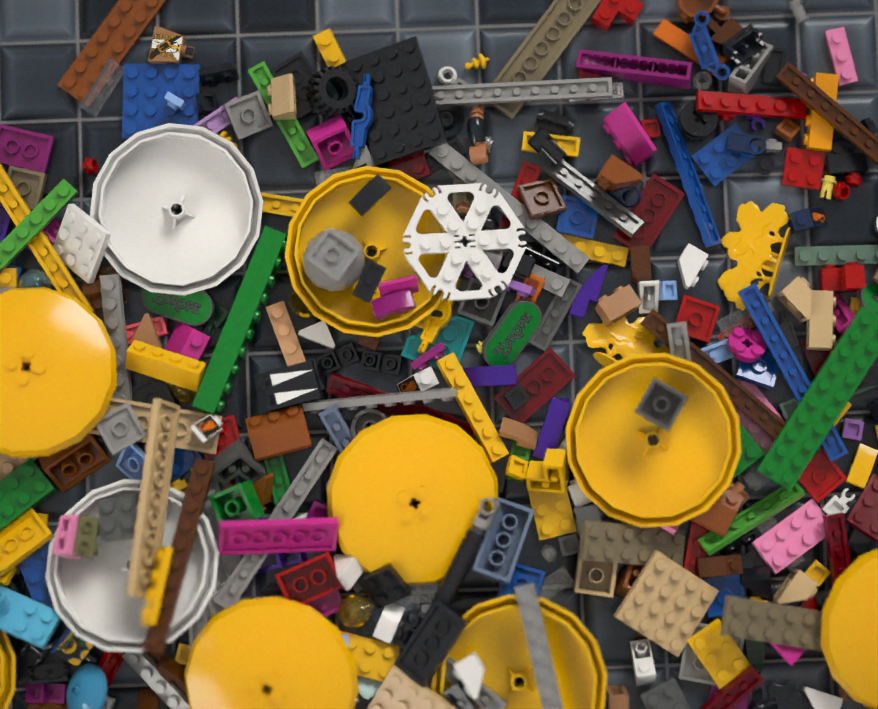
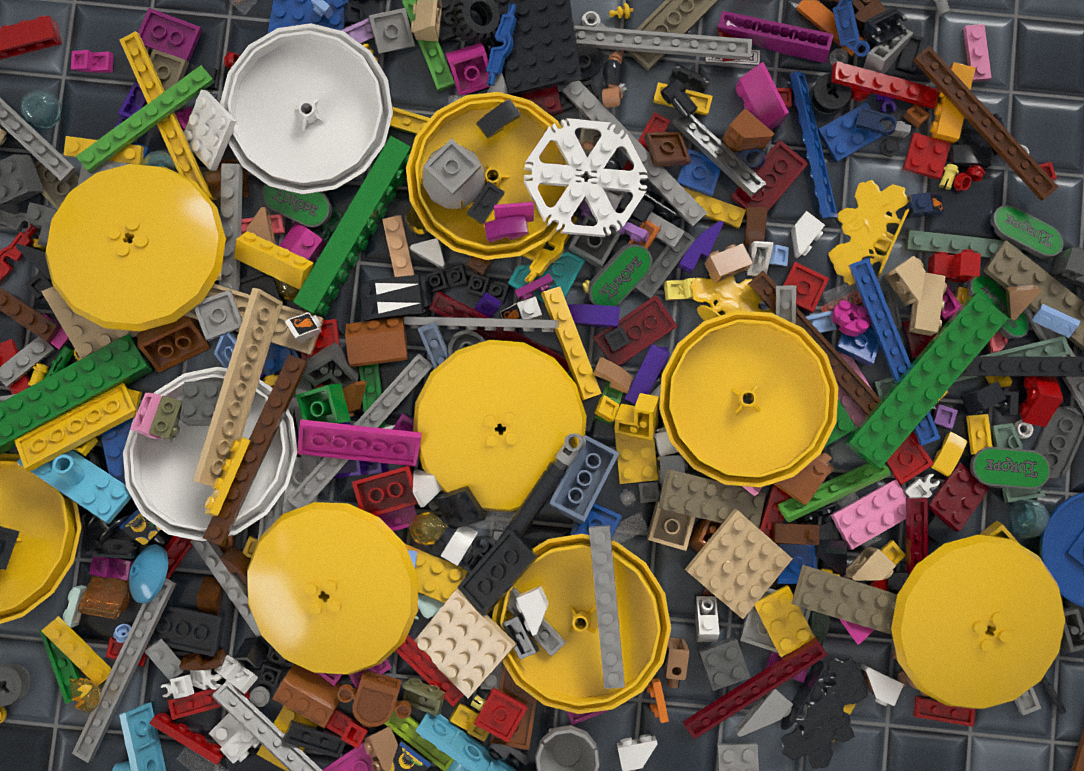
camera: 10 degrees right, 0 degrees up
(383, 380) = (487, 305): none -> dark purple plate
(571, 338) = (678, 289): none -> light yellow slope
(661, 404) = (762, 363): dark grey brick -> none

